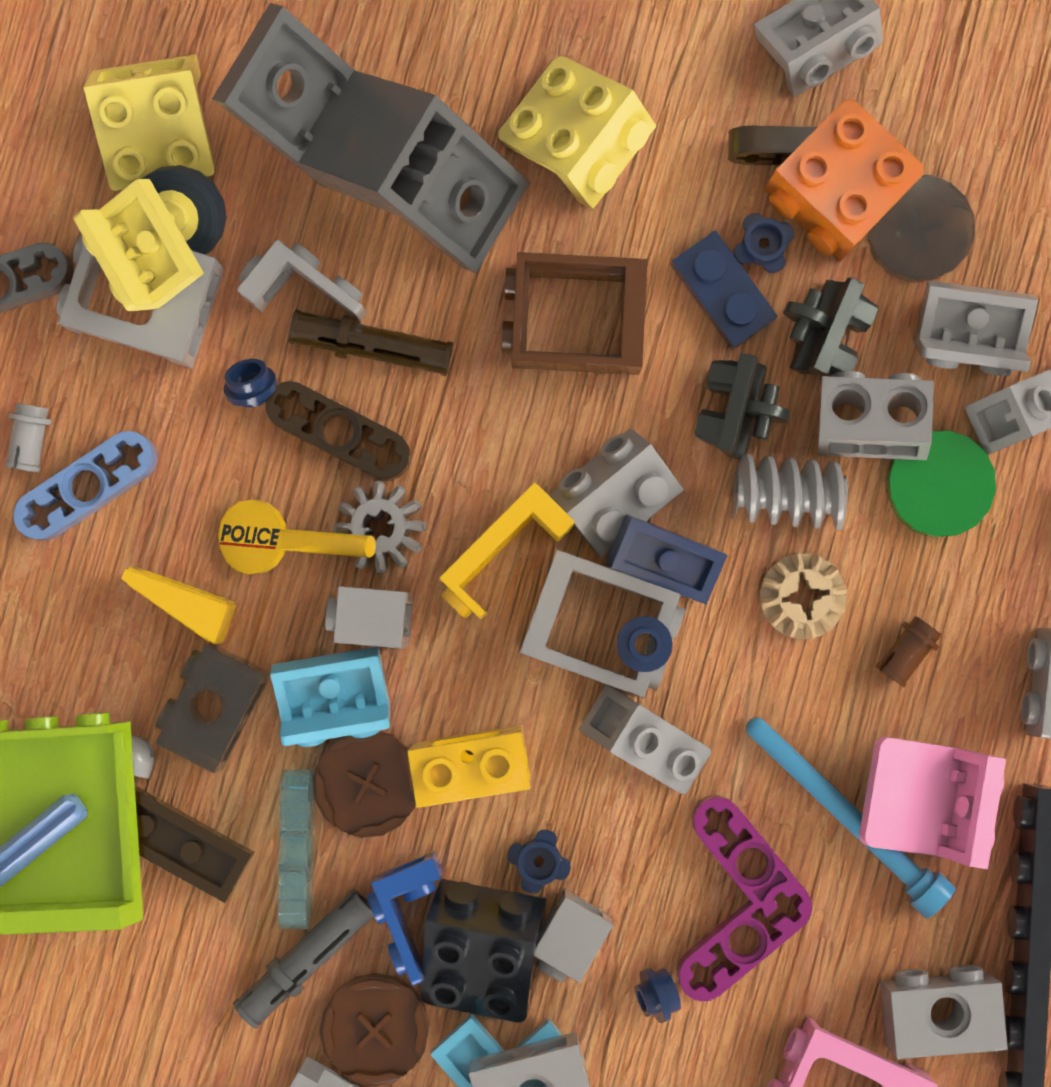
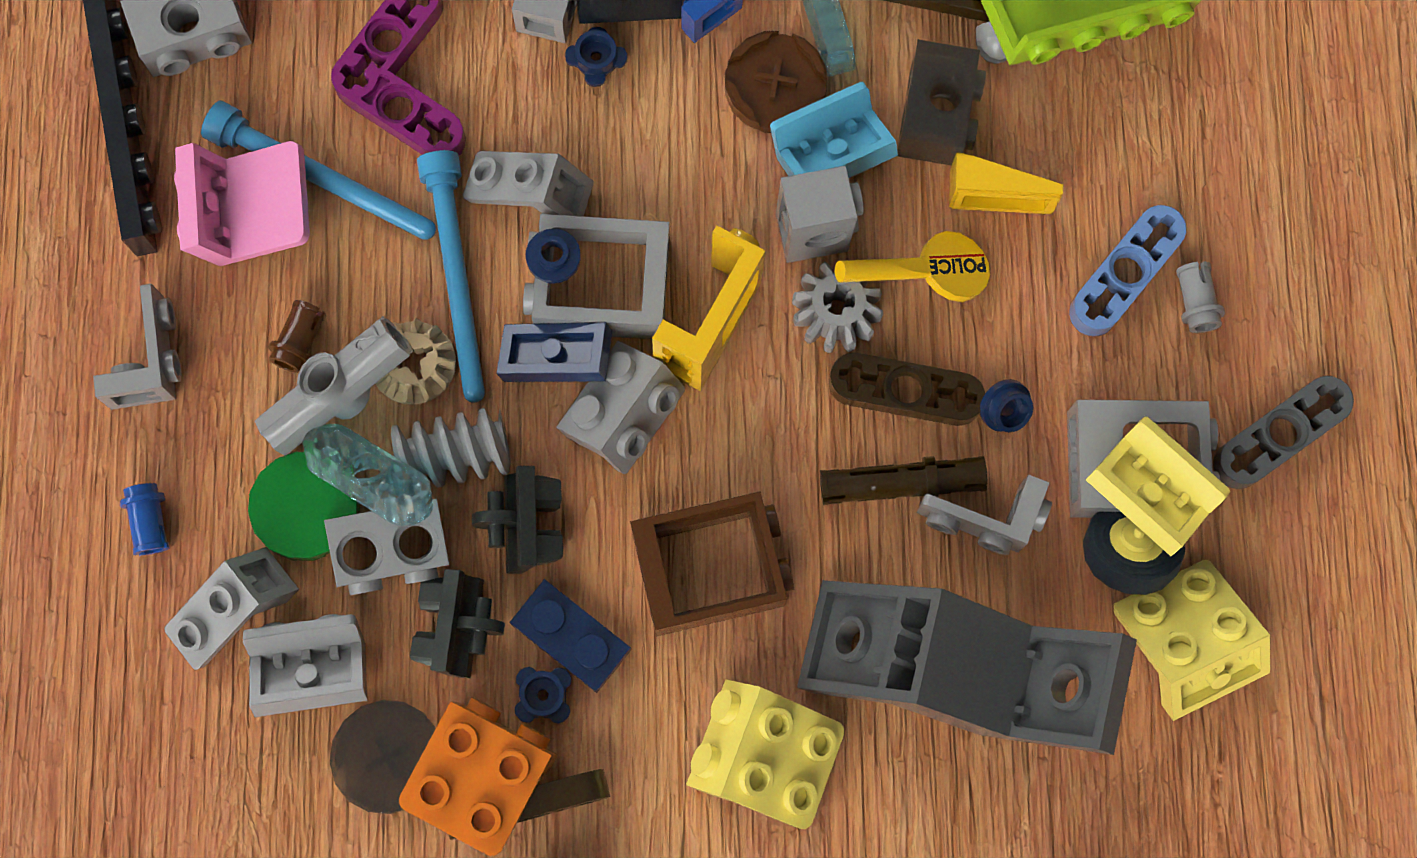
camera: 155 degrees right, 10 degrees down
(448, 774) = (666, 115): yellow window -> none
(728, 774) = (440, 174): none -> dark azure piece
(875, 459) = (376, 492): none -> clear light blue beam
(887, 583) = (333, 385): none -> light grey piece

